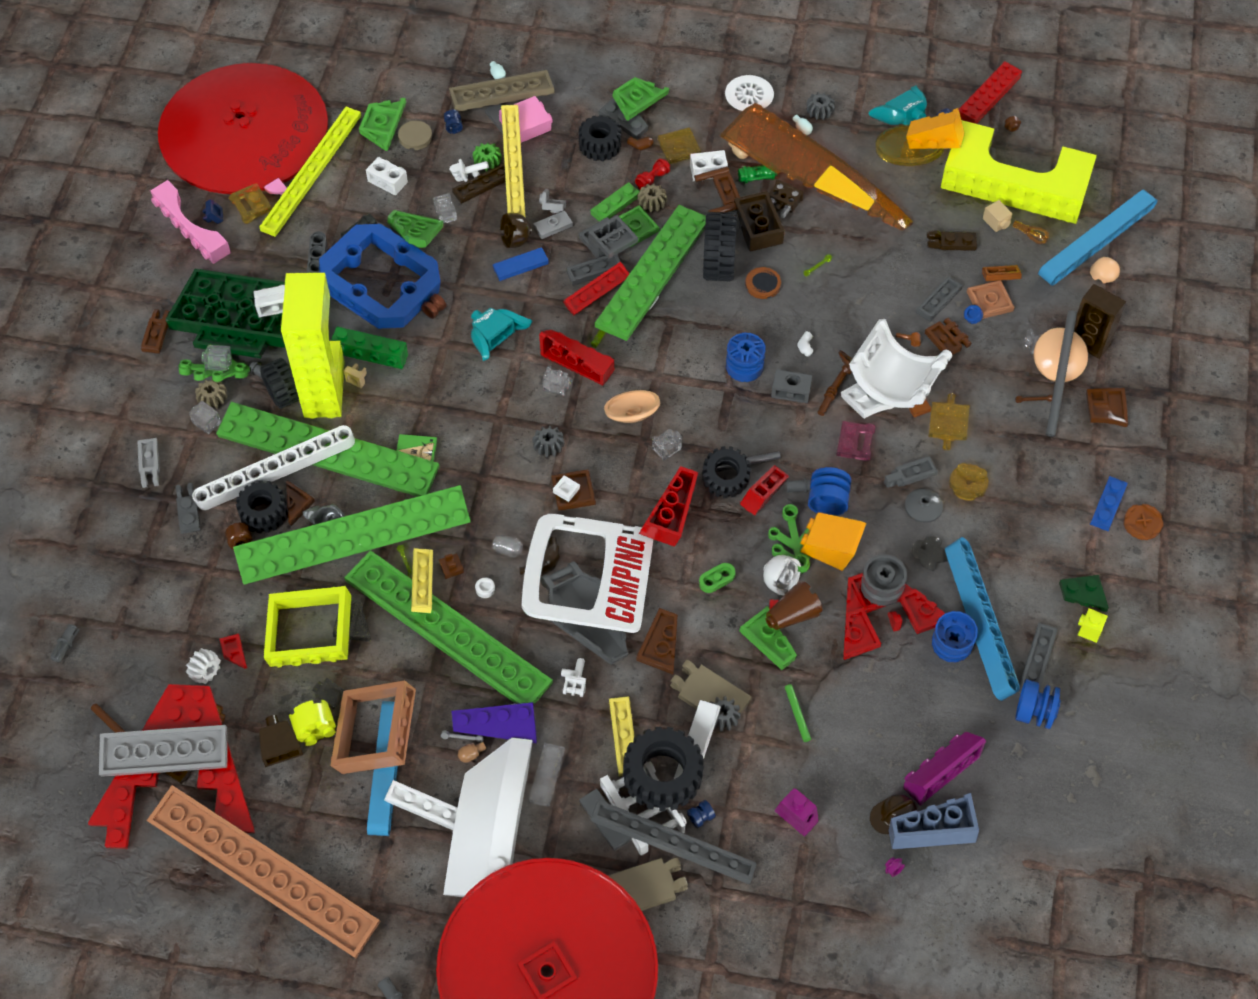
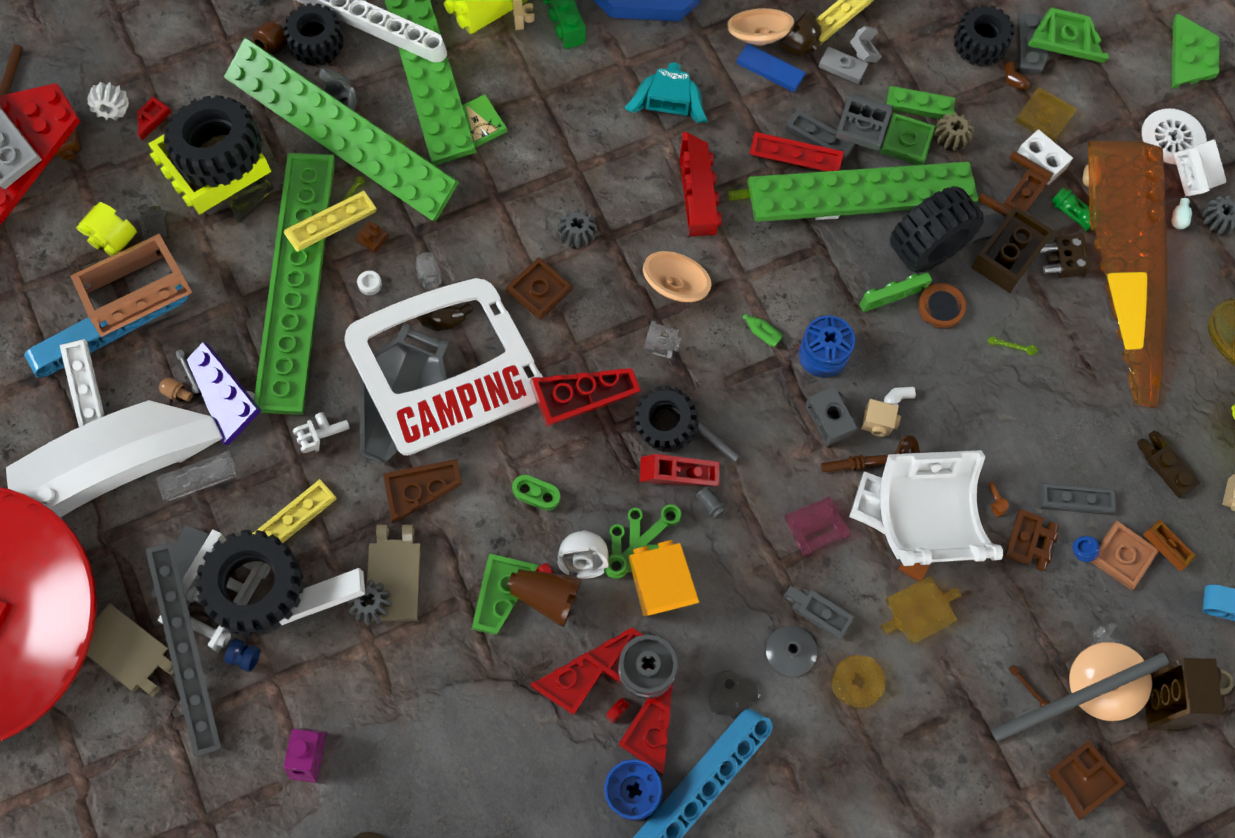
camera: 50 degrees right, 10 degrees up
(278, 742) = (68, 212): dark brown torso -> none
(296, 591) = (206, 120): none -> black tyre
(297, 502) = (348, 60): reddish brown tile -> none
(434, 305) = (654, 25): copper wheel -> none
(489, 247) = (760, 26): none -> light nougat dish
(556, 381) = (654, 188): clear brick -> none
(566, 488) = (528, 279): white plate -> none
(660, 168) = (974, 110): red piece -> none
(700, 45) = (1193, 52): none -> bright green wing
(704, 385) = (763, 330): none -> bright green piece
(734, 299) = (895, 291): none -> bright green plate
(782, 95) = (1200, 168): none -> white bracket
(797, 713) = (431, 679): bright green bar -> none
(812, 361) = (880, 418): none -> tan brick
(829, 491) = (722, 538): blue wheel -> none

